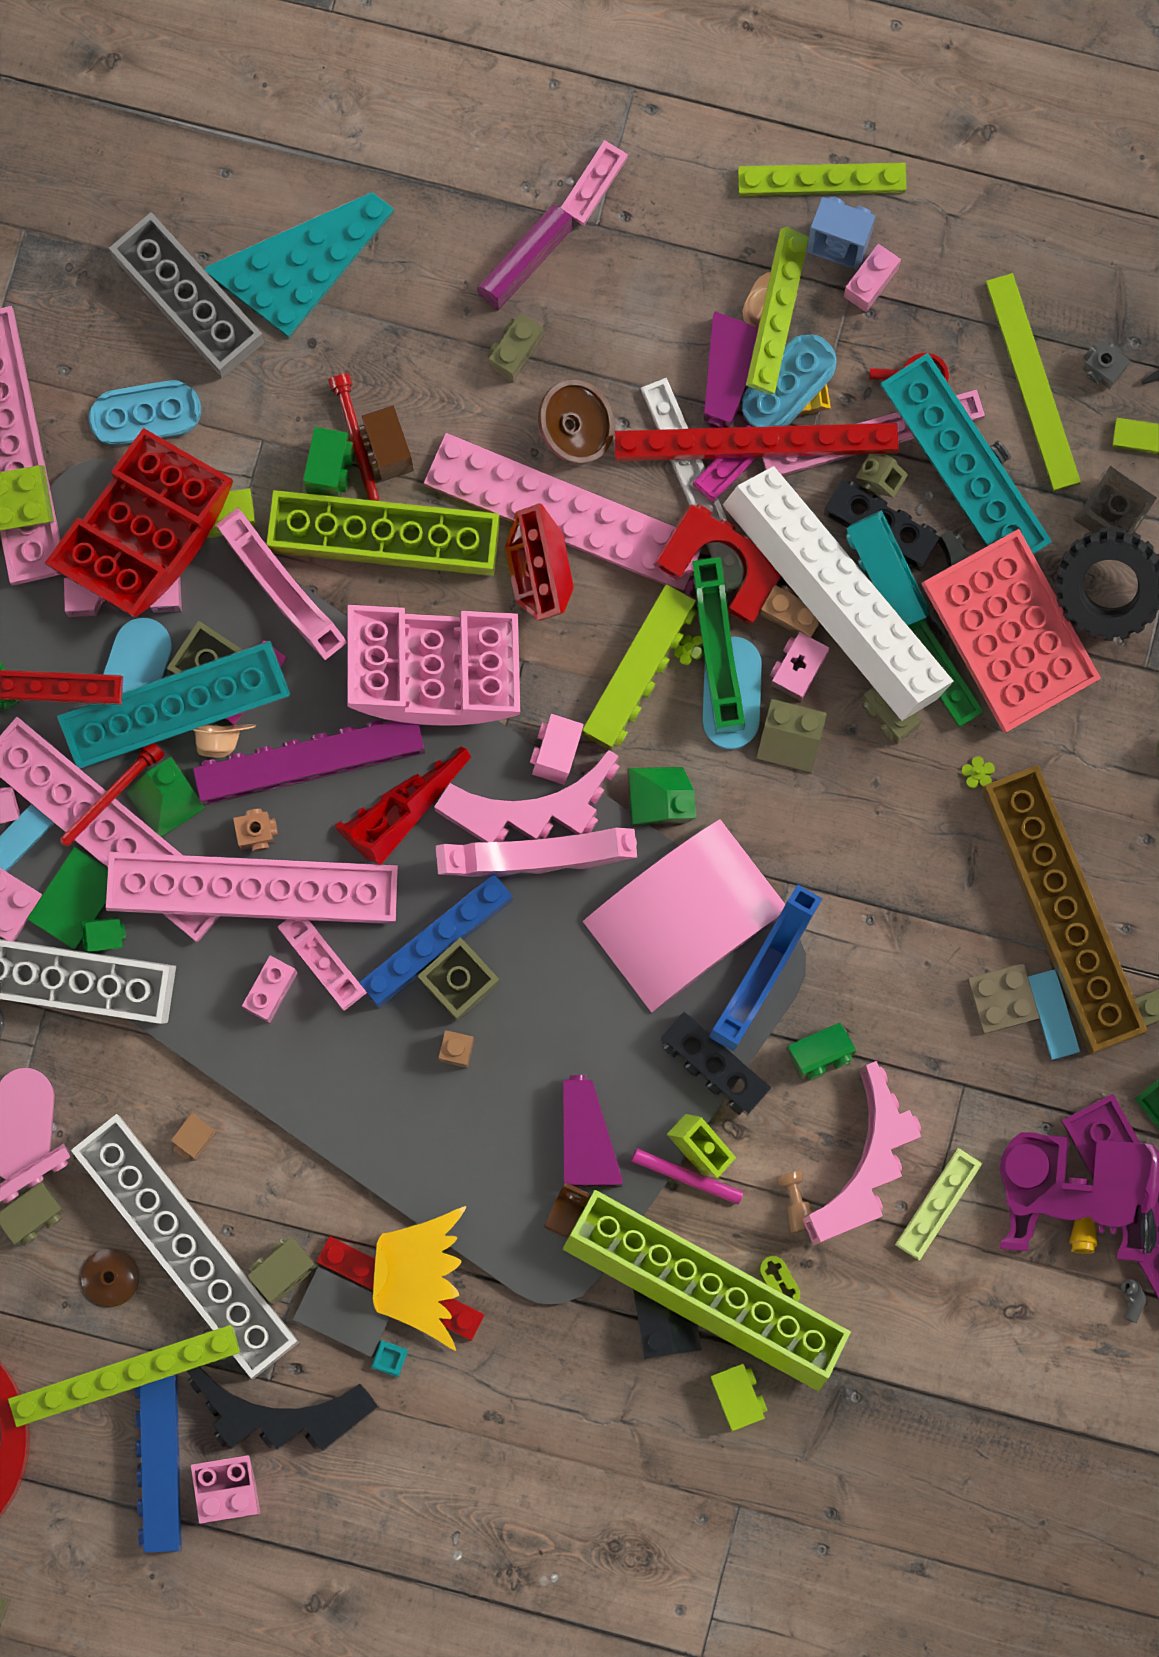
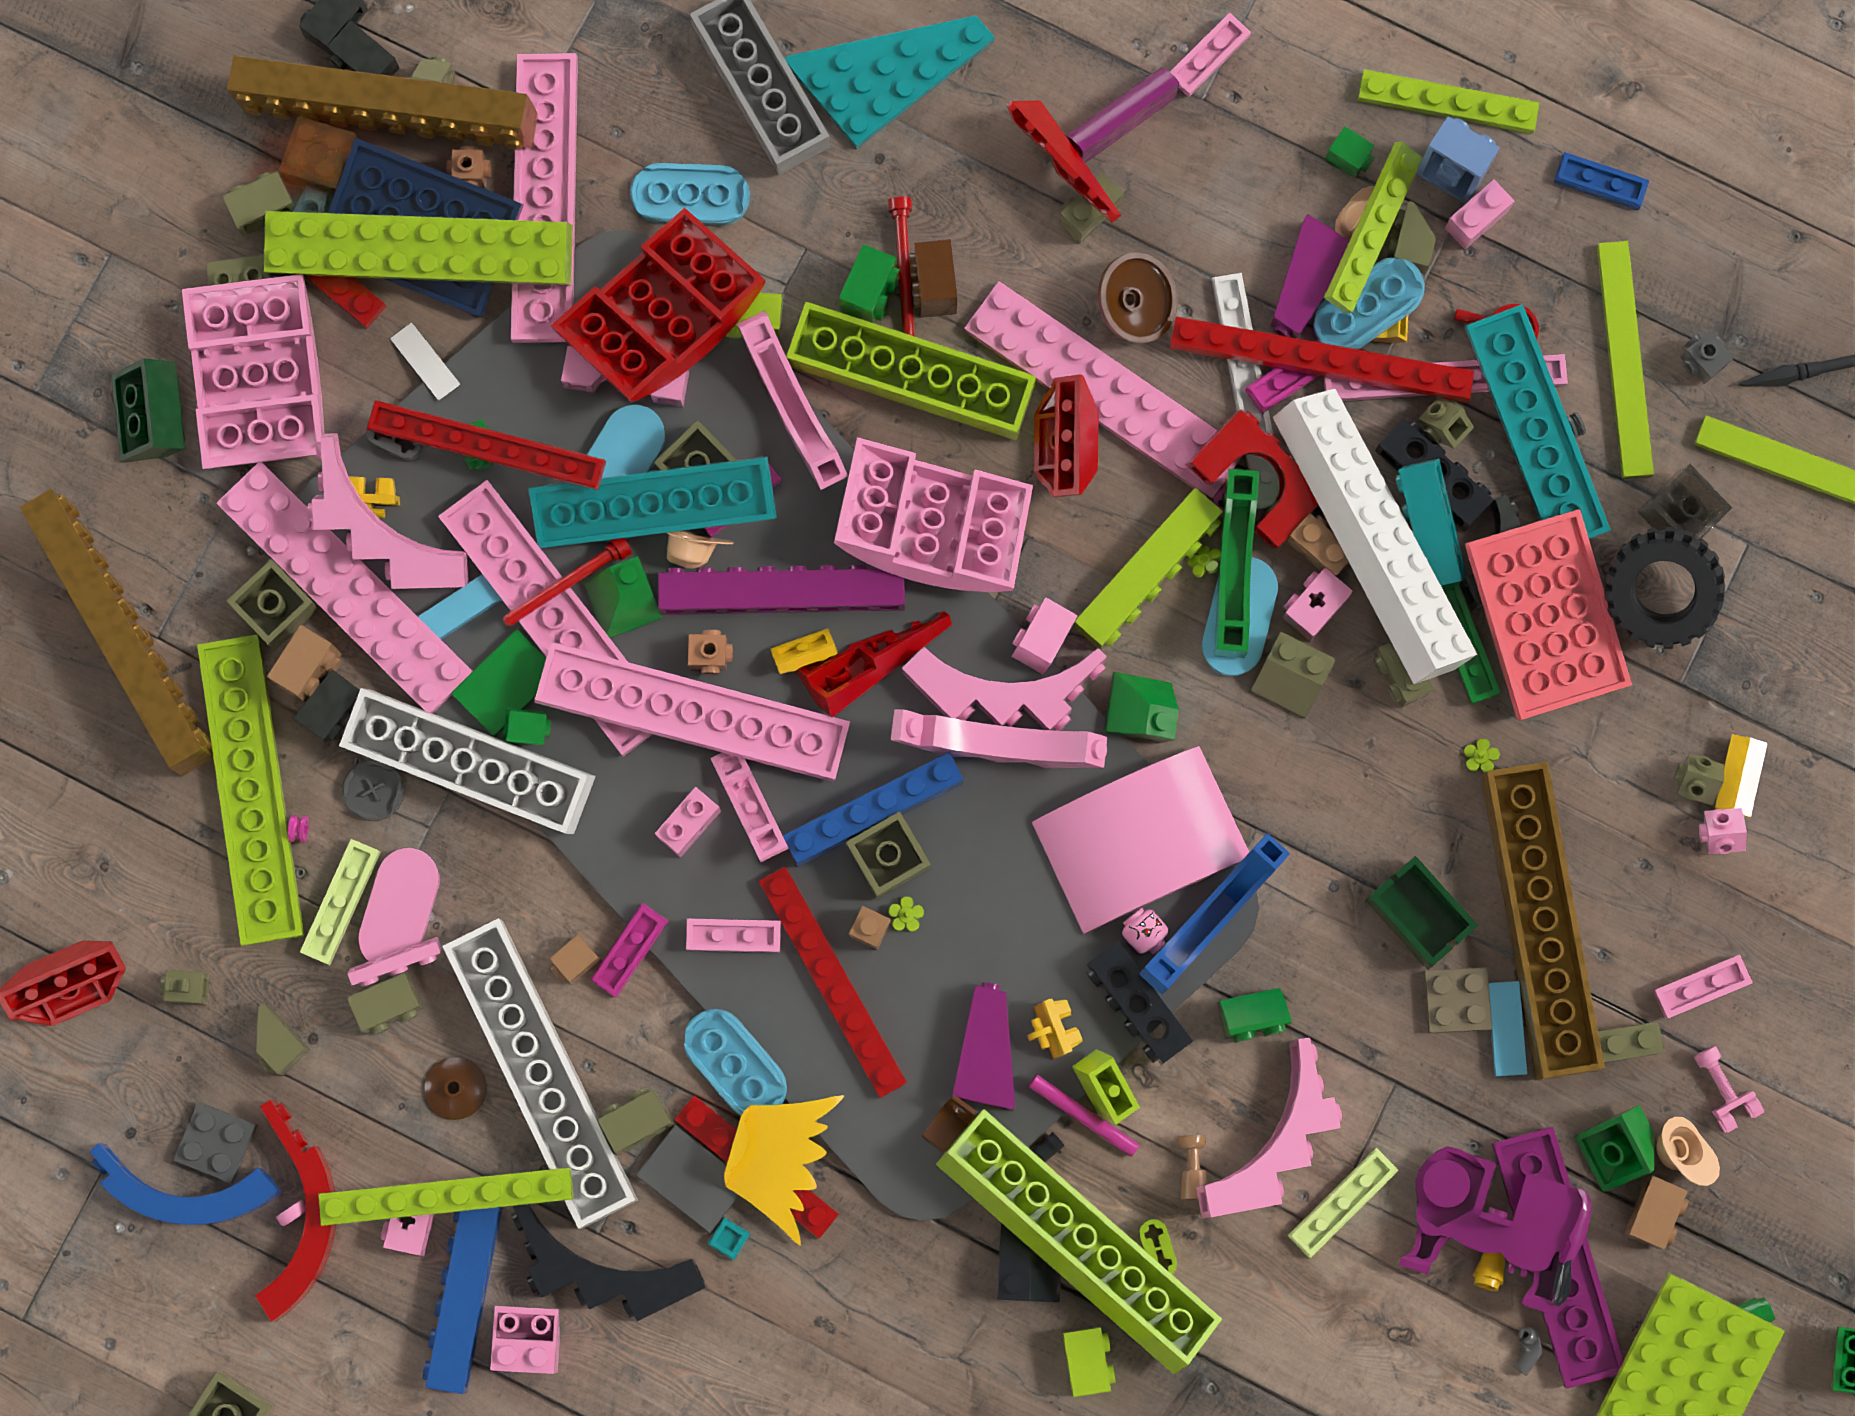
camera: 10 degrees right, 0 degrees up
(101, 1422) = (409, 1240): none -> bright pink brick
(241, 1117) = (629, 950): none -> dark pink tile
(333, 1083) = (733, 935): none -> bright pink plate
(341, 810) = (804, 651): none -> yellow plate
(358, 1197) = (733, 1061): none -> medium azure tile
(433, 1105) = (832, 982): none -> red plate
(456, 285) = (1040, 126): none -> red wedge
(486, 1030) = (906, 914): none -> lime plant
(640, 1106) = (1050, 1029): none -> yellow hips
(661, 1212) = (1048, 1147): none -> black pin
(706, 997) = (1145, 931): none -> bright pink head
(743, 246) = (1351, 152): none -> green brick
(818, 313) = (1414, 239): none -> olive slope
(953, 926) = (1421, 912): none -> dark green piece
(977, 222) = (1601, 181): none -> blue tile

